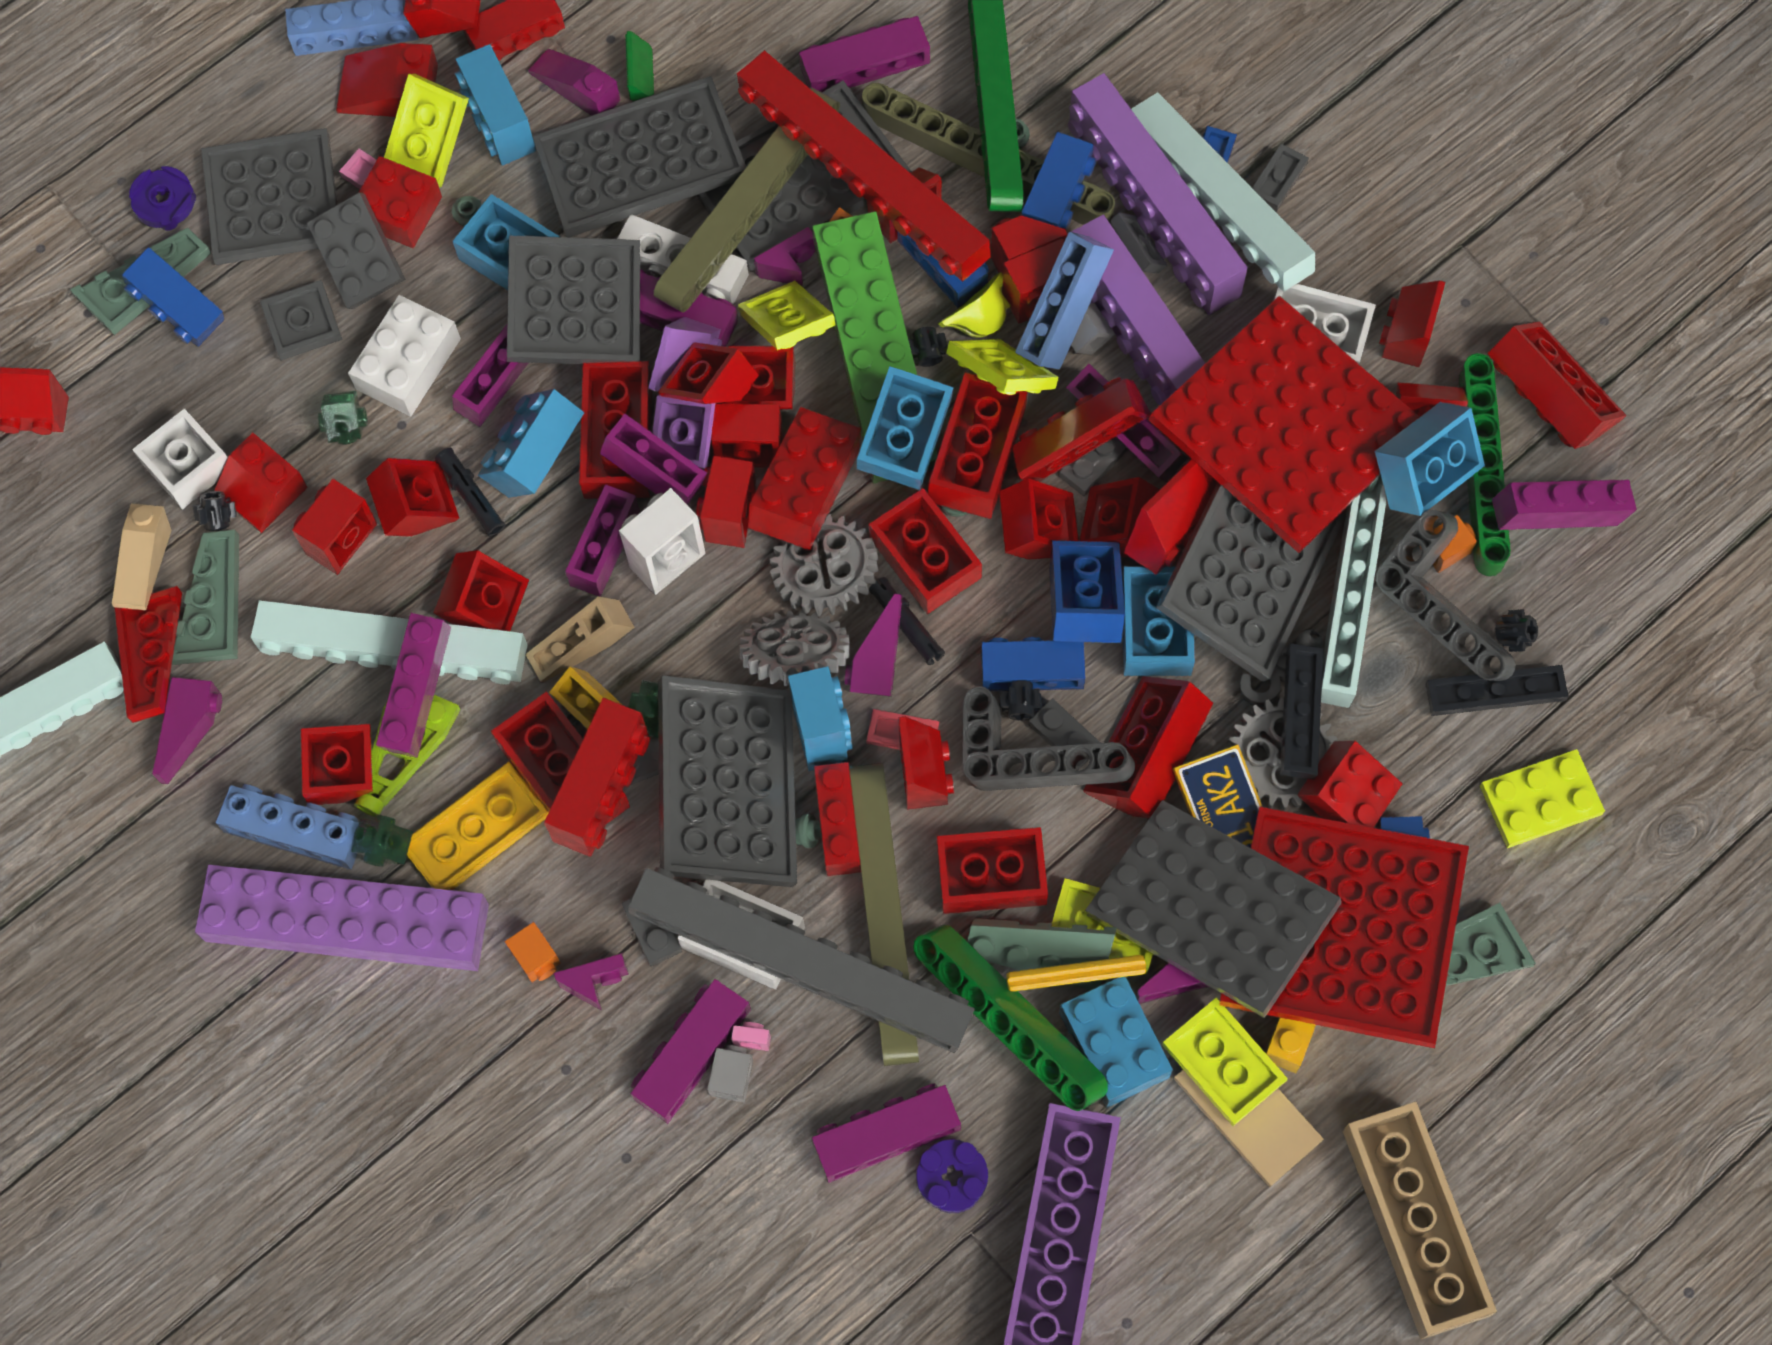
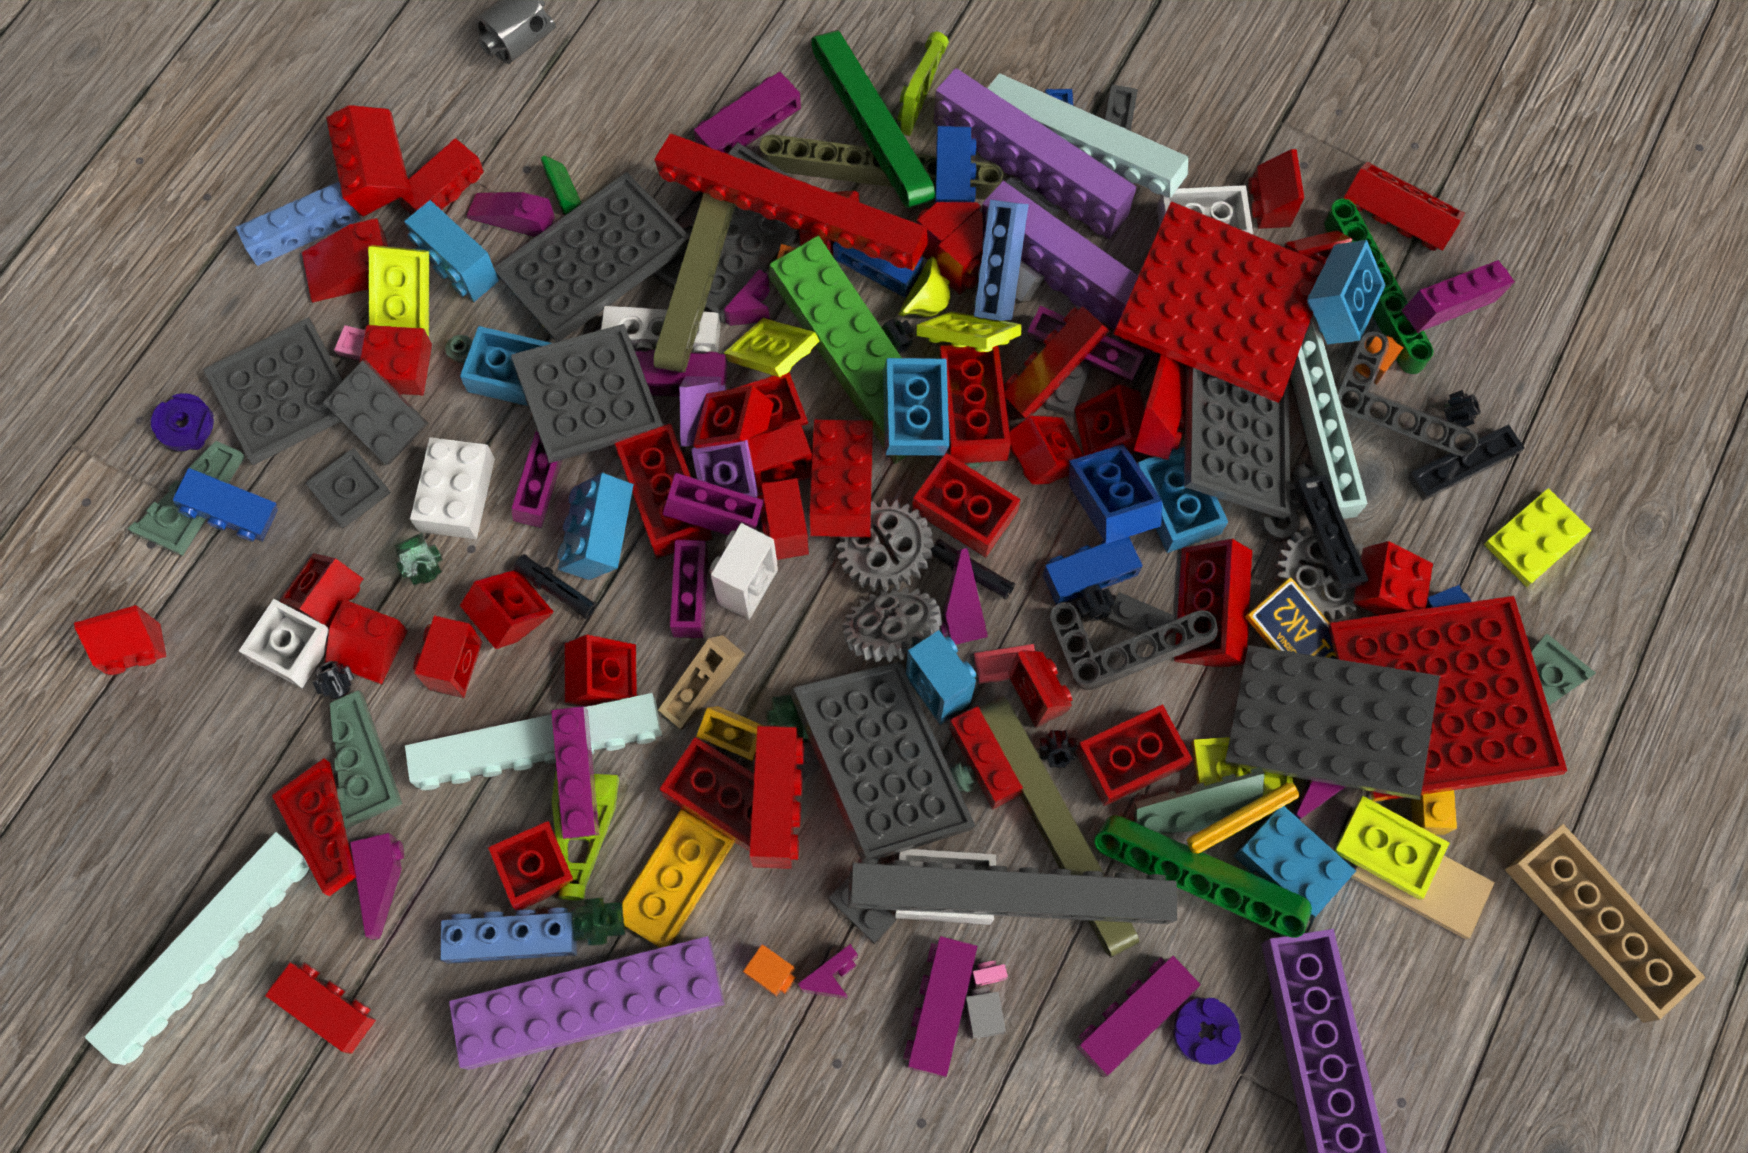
camera: 25 degrees left, 0 degrees up
(87, 828) = (321, 1006): none -> red brick
(140, 555) = (280, 743): tan slope -> none
(236, 415) = (321, 588): none -> red slope
(917, 836) = (1058, 748): none -> black gear
(1048, 89) = (917, 90): none -> lime plate

